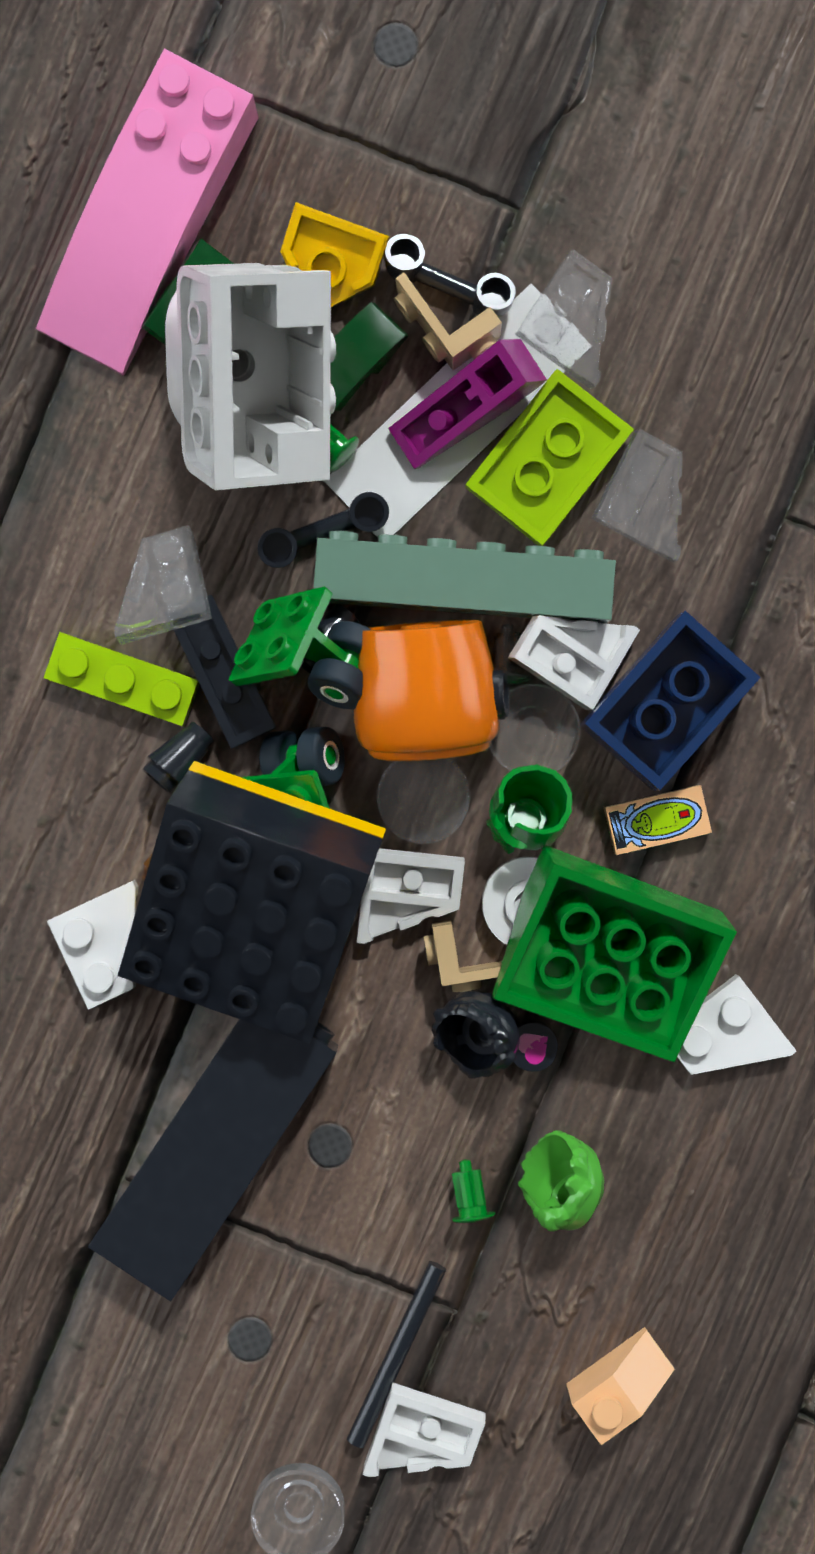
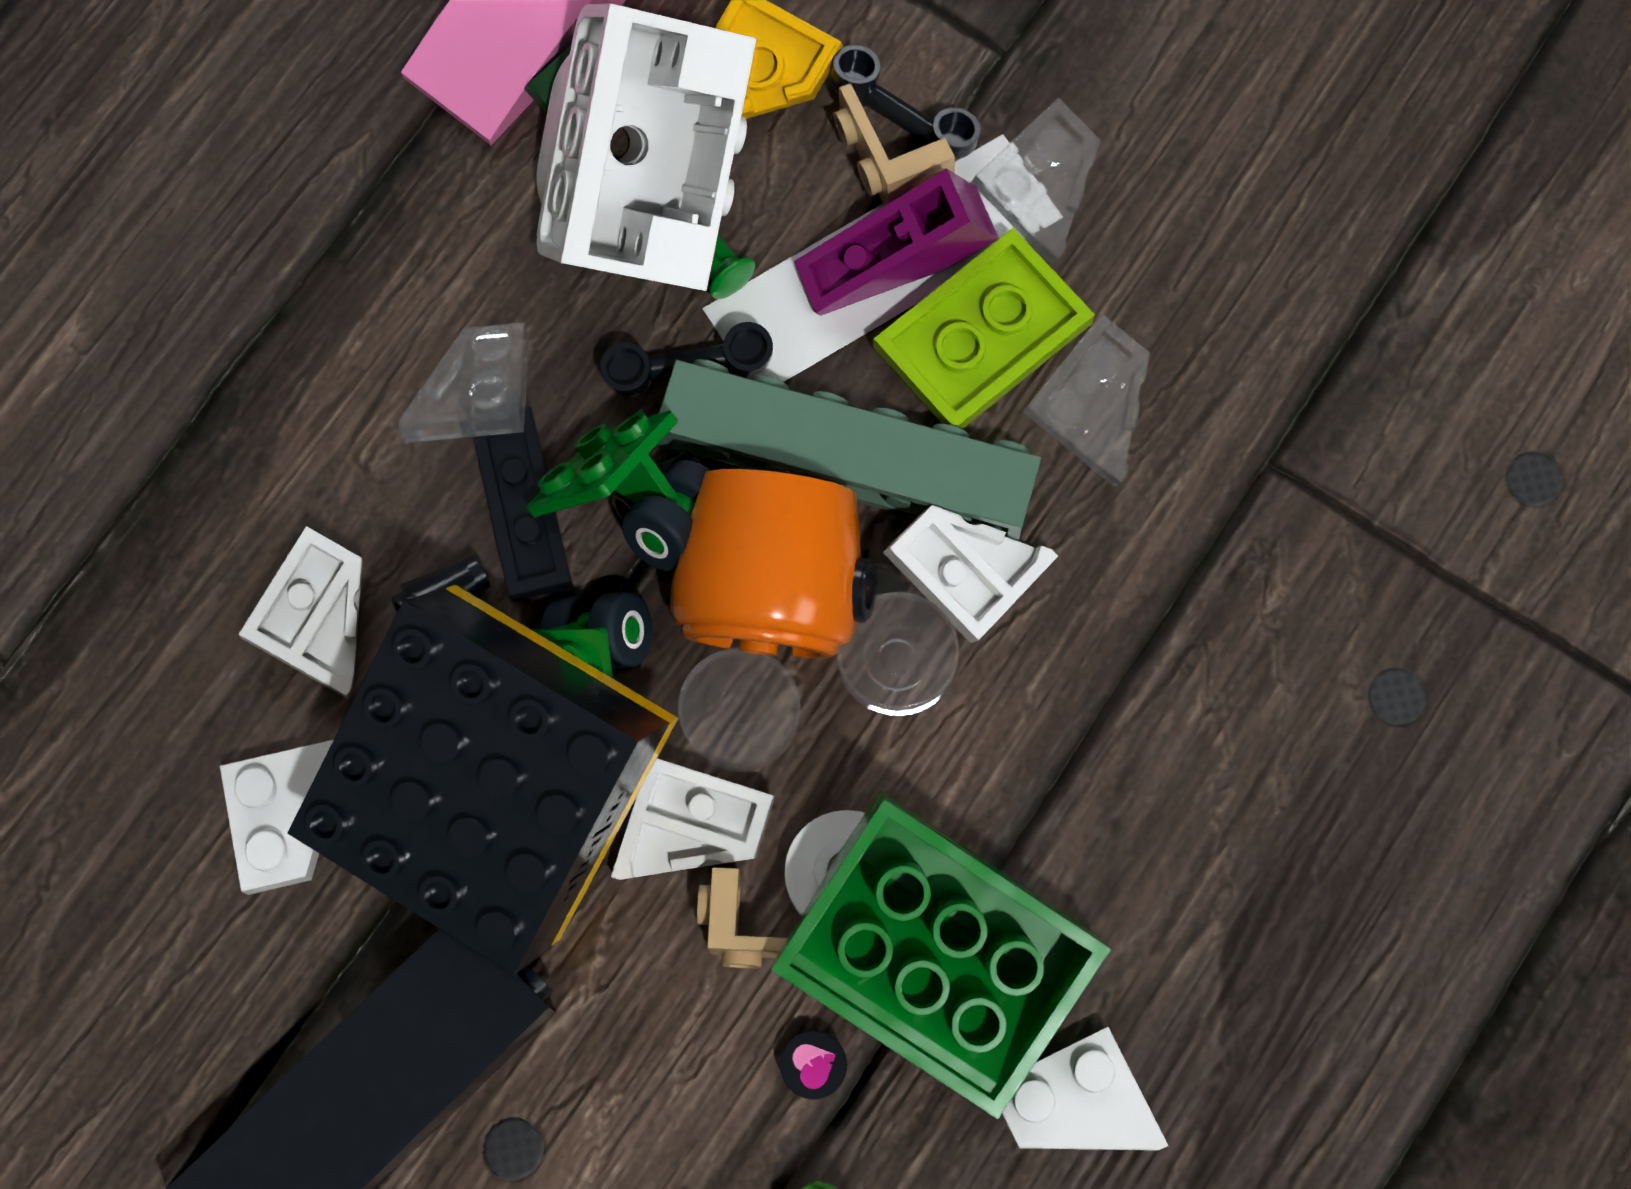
camera: 15 degrees right, 15 degrees down
(84, 790) = (312, 612): none -> white wing
(121, 679) = (396, 490): lime plate -> none
(363, 349) = (776, 163): dark green slope -> none
(477, 1033) = (740, 1024): black hair -> none
(529, 808) = (870, 742): green helmet -> none
(657, 820) = (1037, 800): tile -> none
(669, 701) = (1076, 644): dark blue brick -> none

